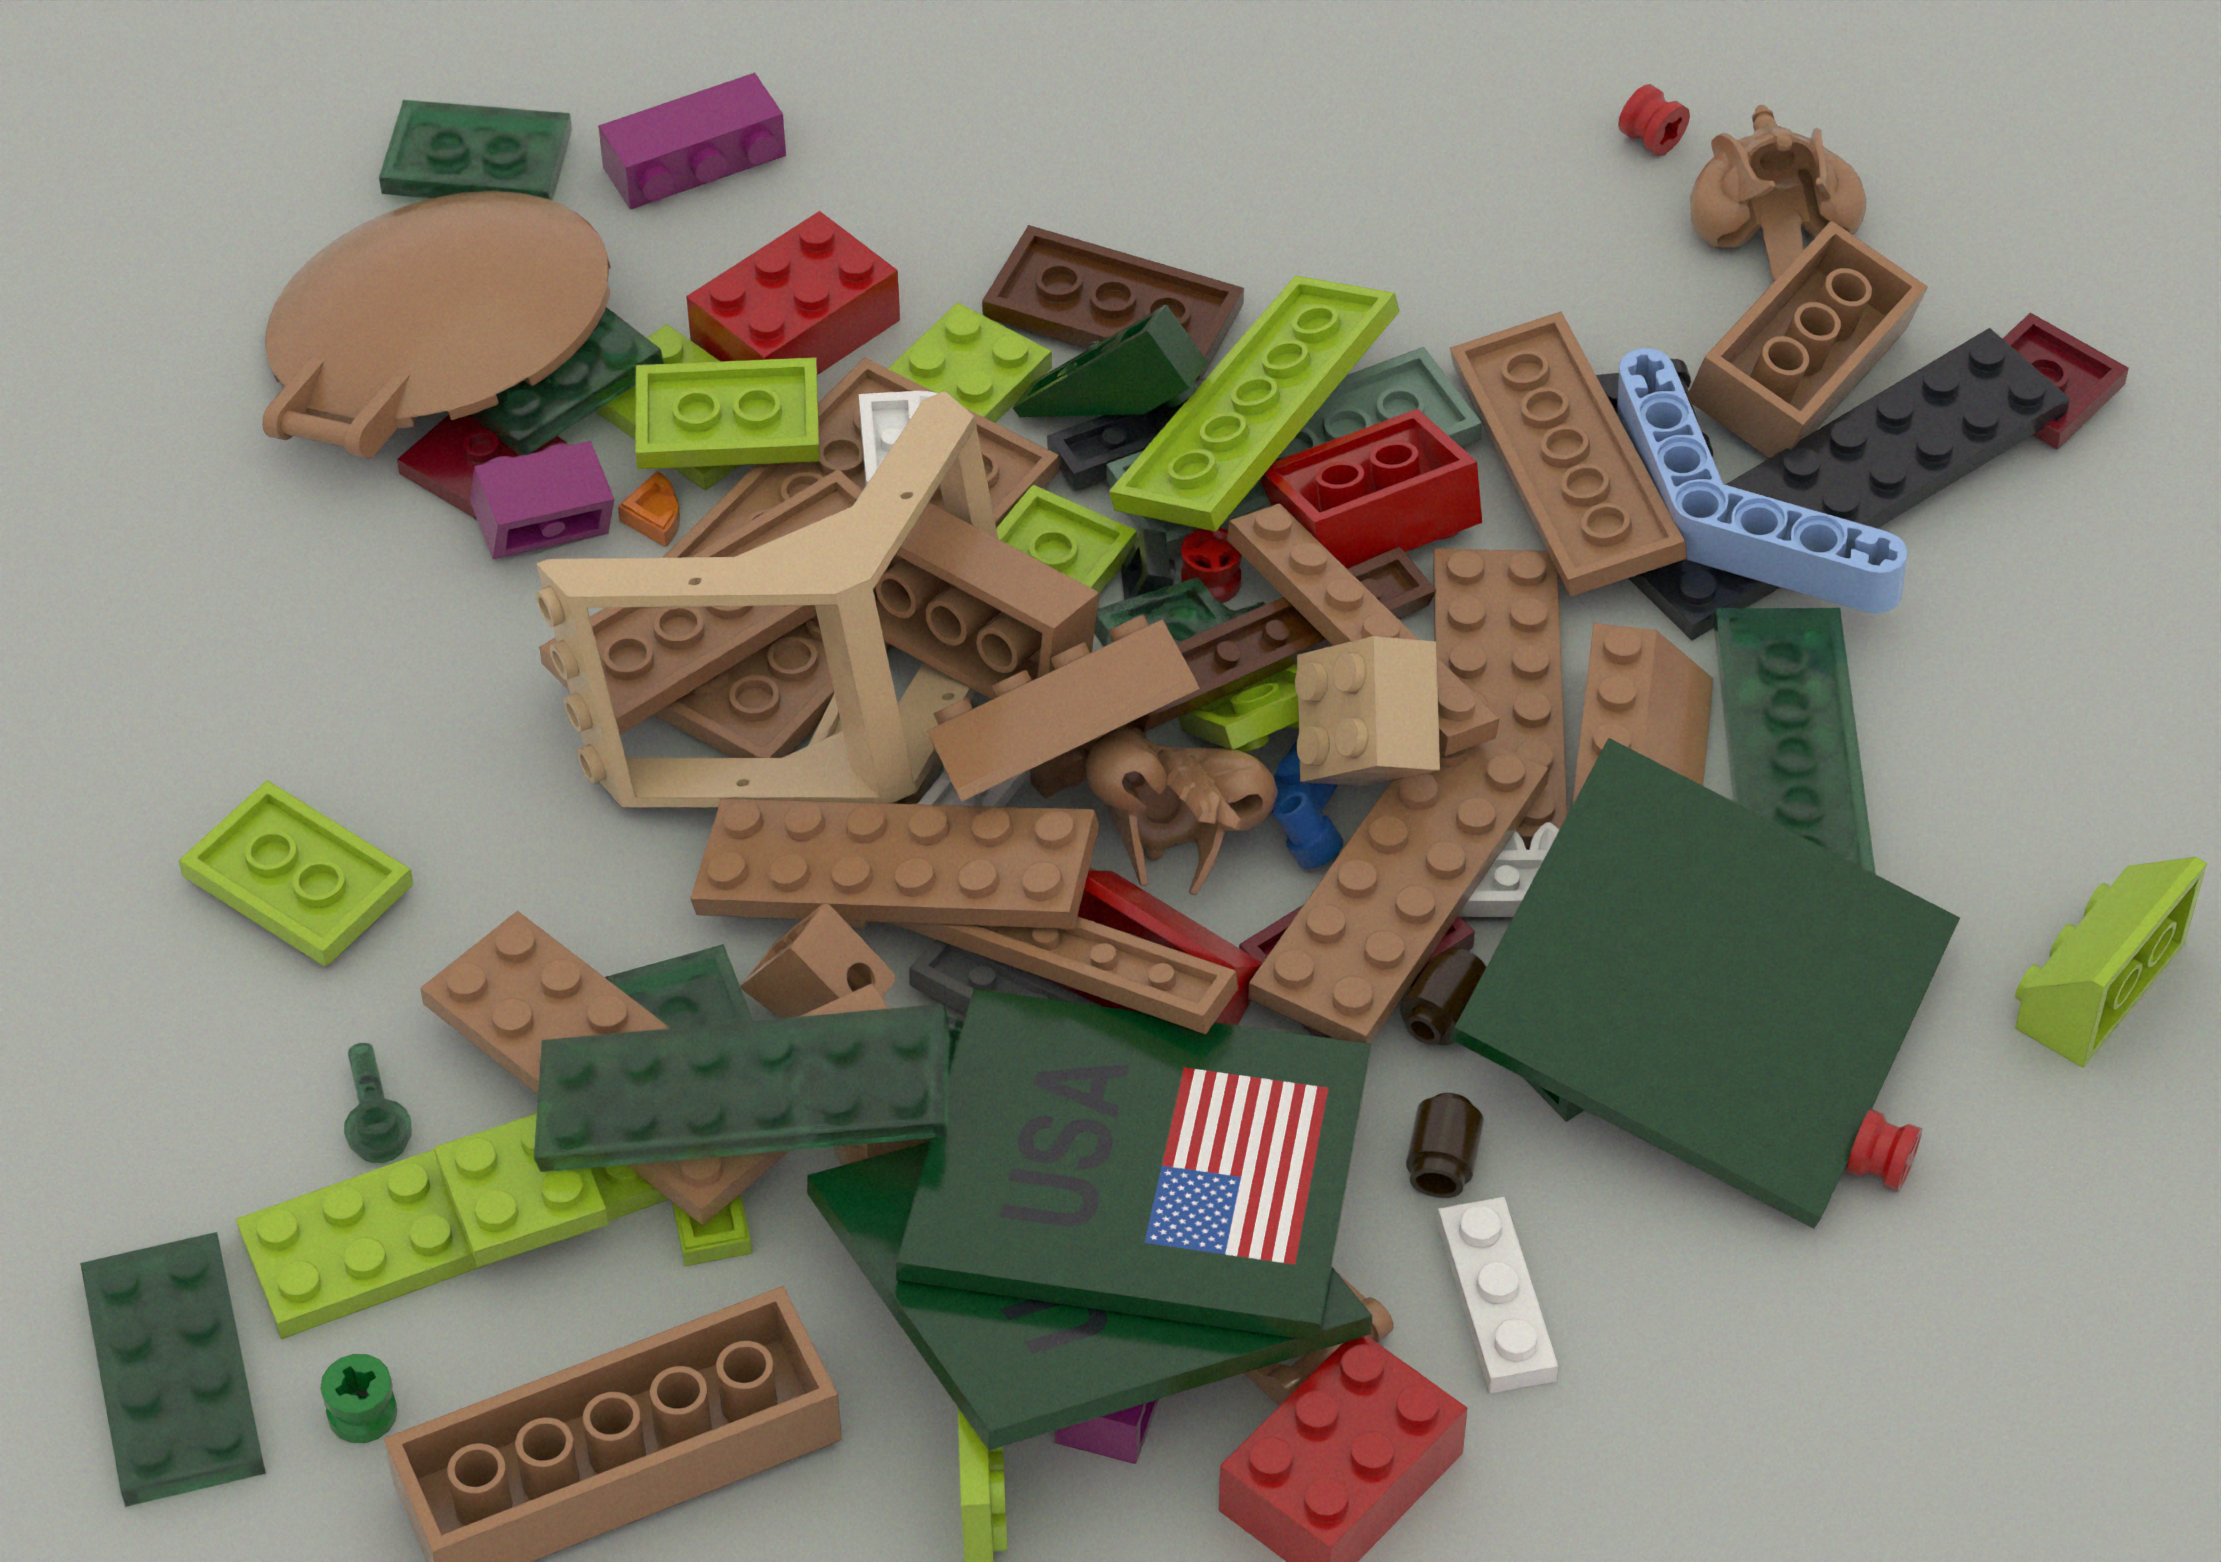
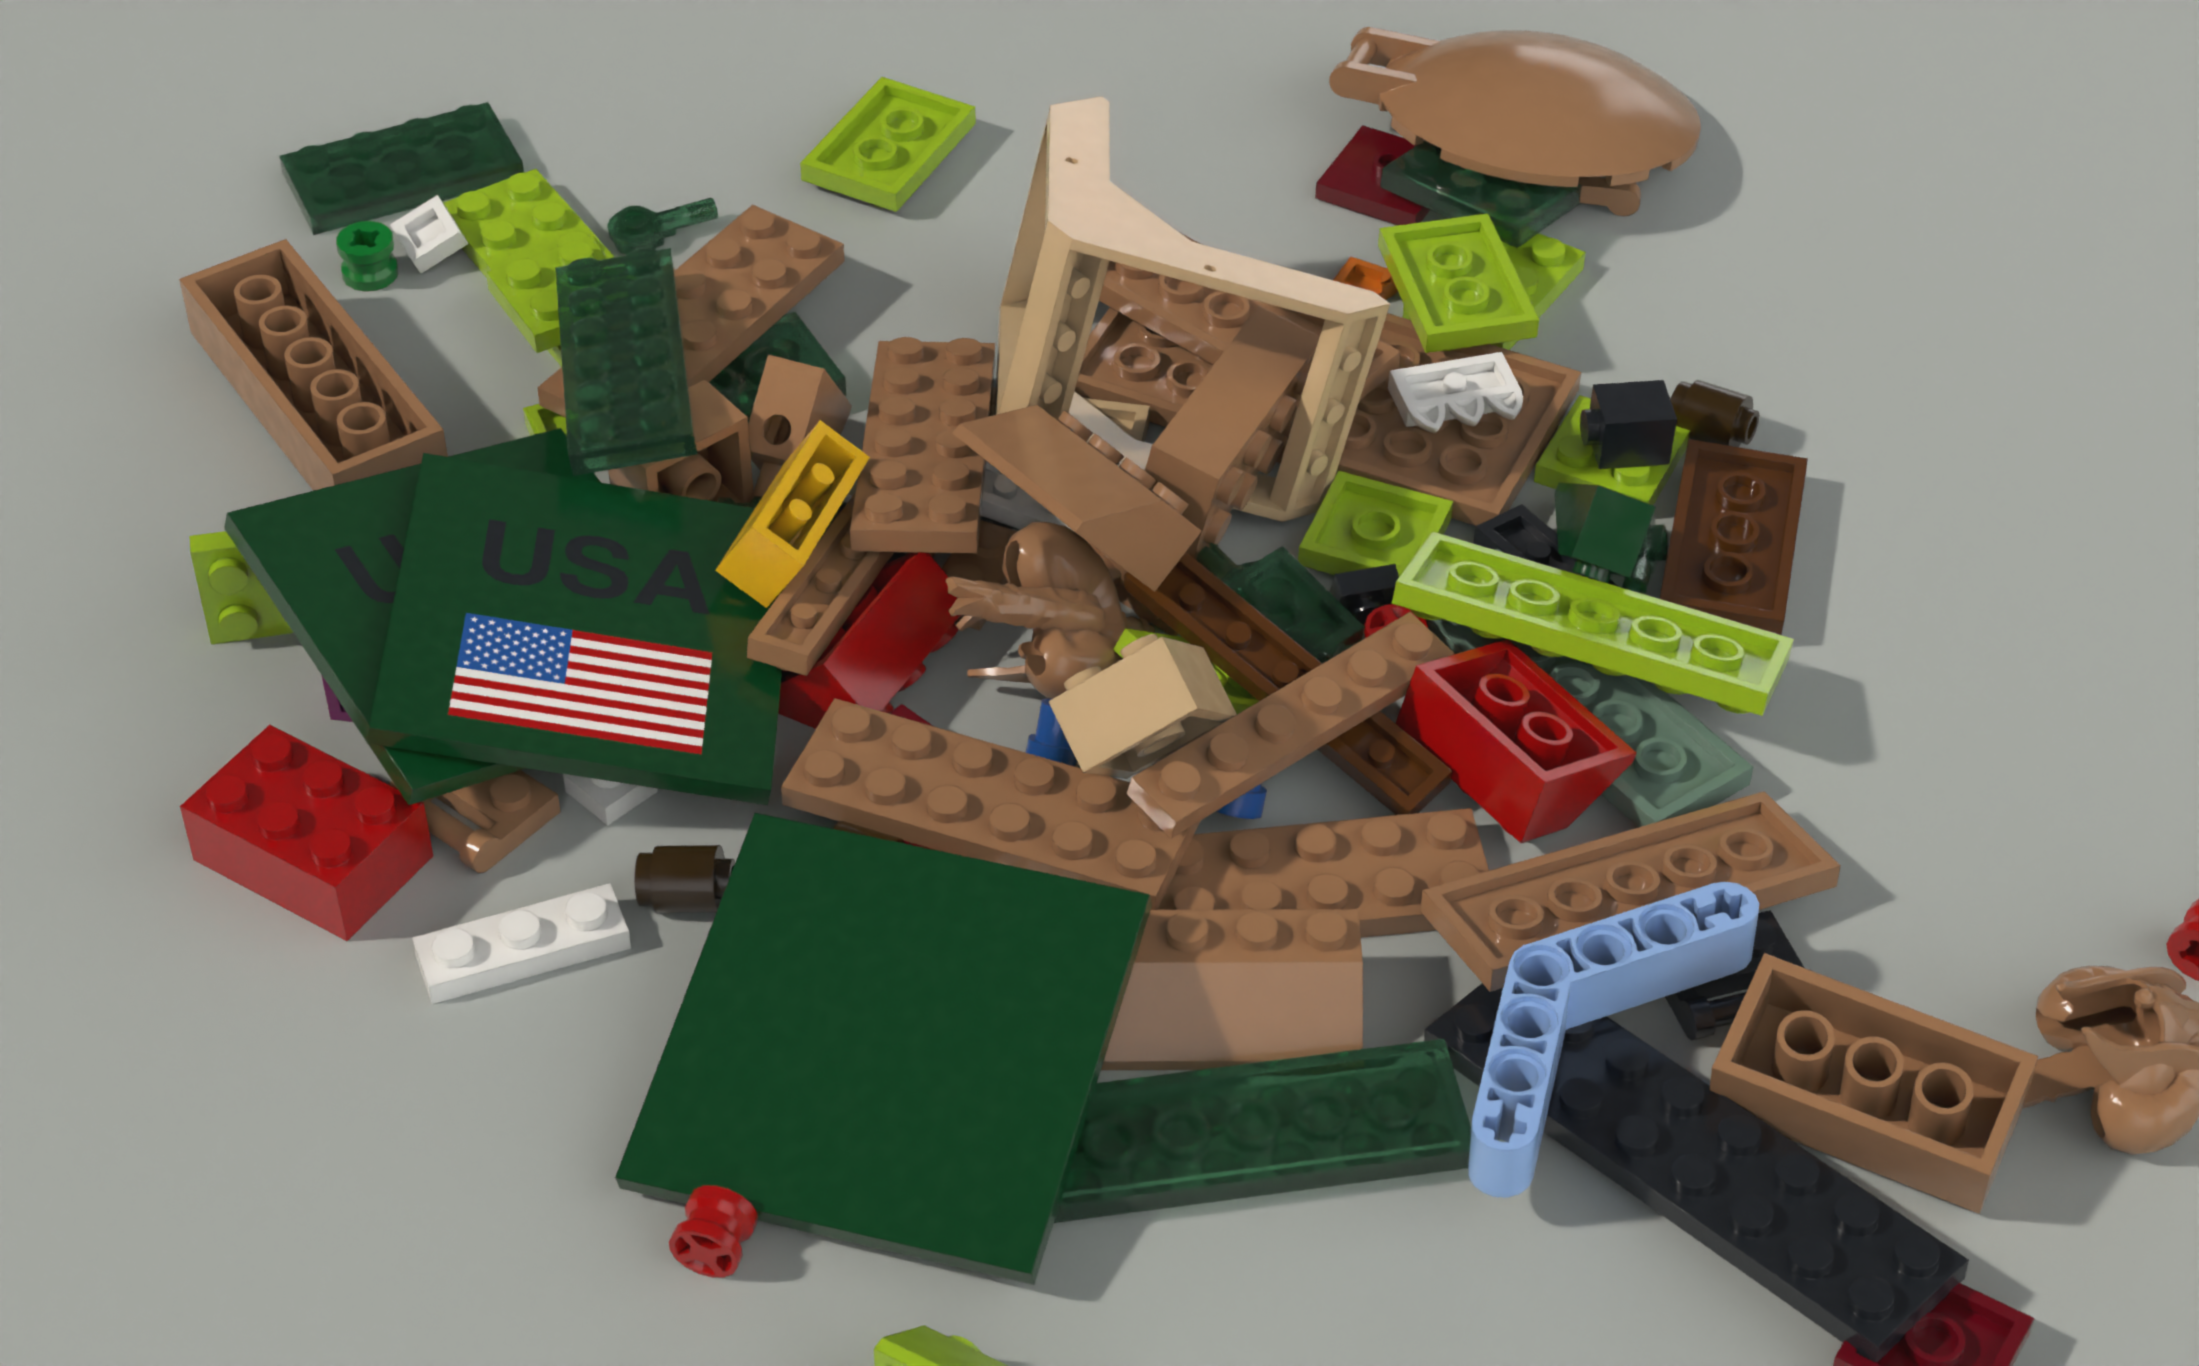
camera: 80 degrees right, 5 degrees down
(339, 1327) = (429, 234): none -> white plate
(474, 149) = (1755, 113): clear green plate -> none
(541, 499) = (1327, 199): magenta brick -> none
(692, 140) = (1828, 232): magenta brick -> none
(797, 298) = (1628, 316): red brick -> none
(942, 279) = (1715, 413): none -> dark brown brick
(983, 323) = (1629, 424): none -> black brick
(1028, 961) = (793, 514): none -> yellow brick

